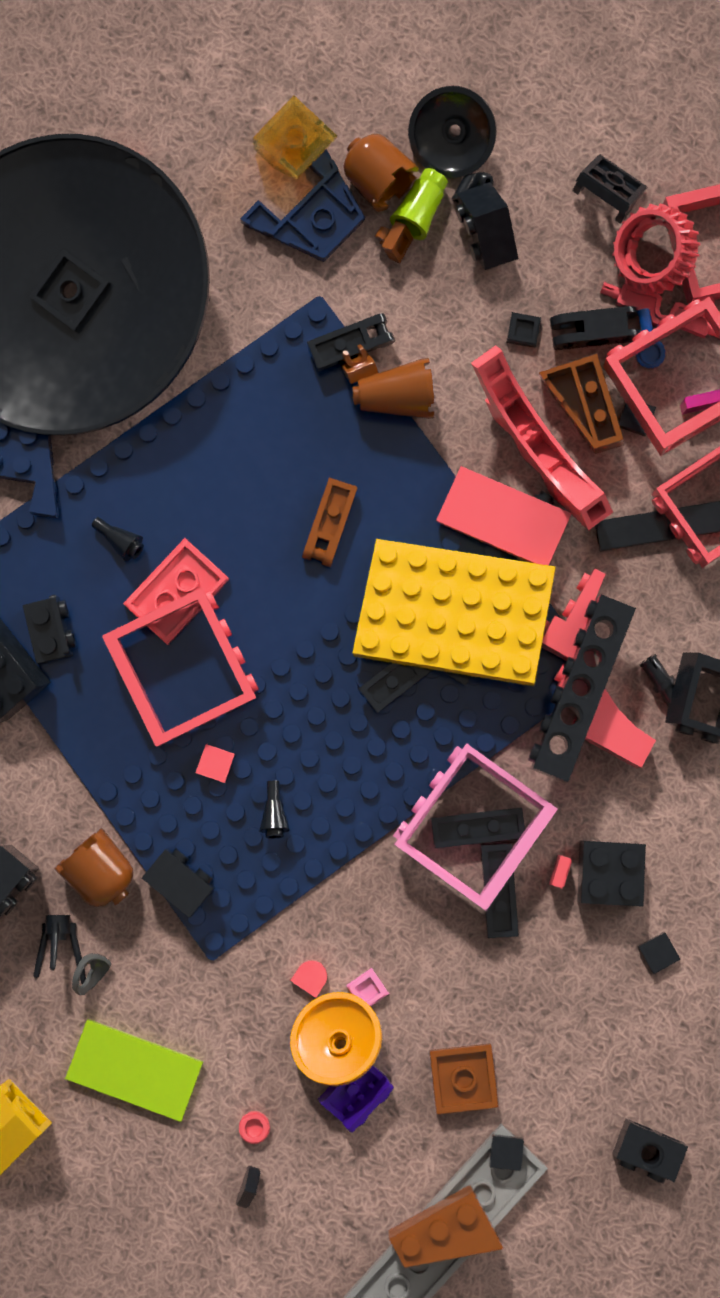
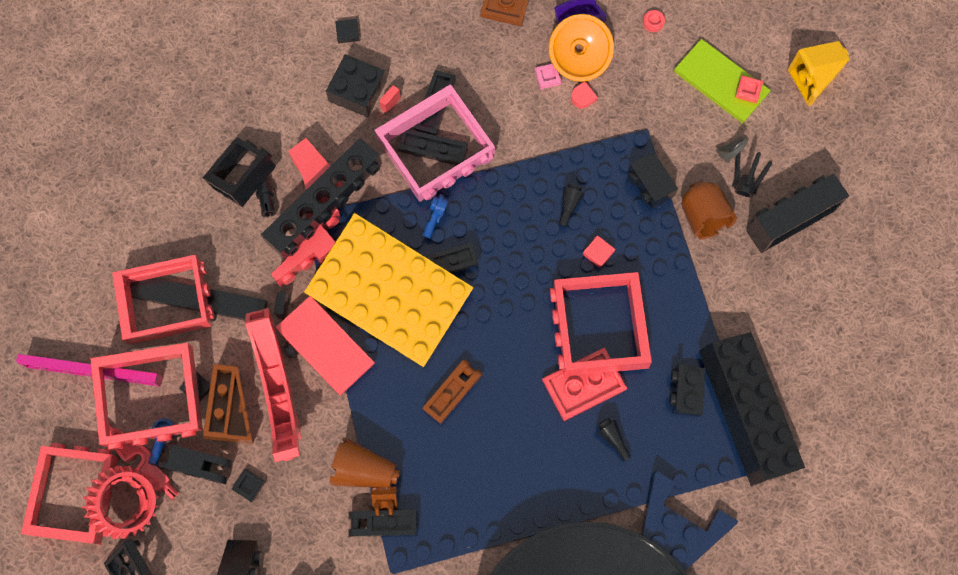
camera: 155 degrees left, 10 degrees down
(94, 1067) = (749, 89): none -> coral tile
(437, 744) = (438, 206): none -> blue plate
(578, 549) = (281, 305): none -> black tile

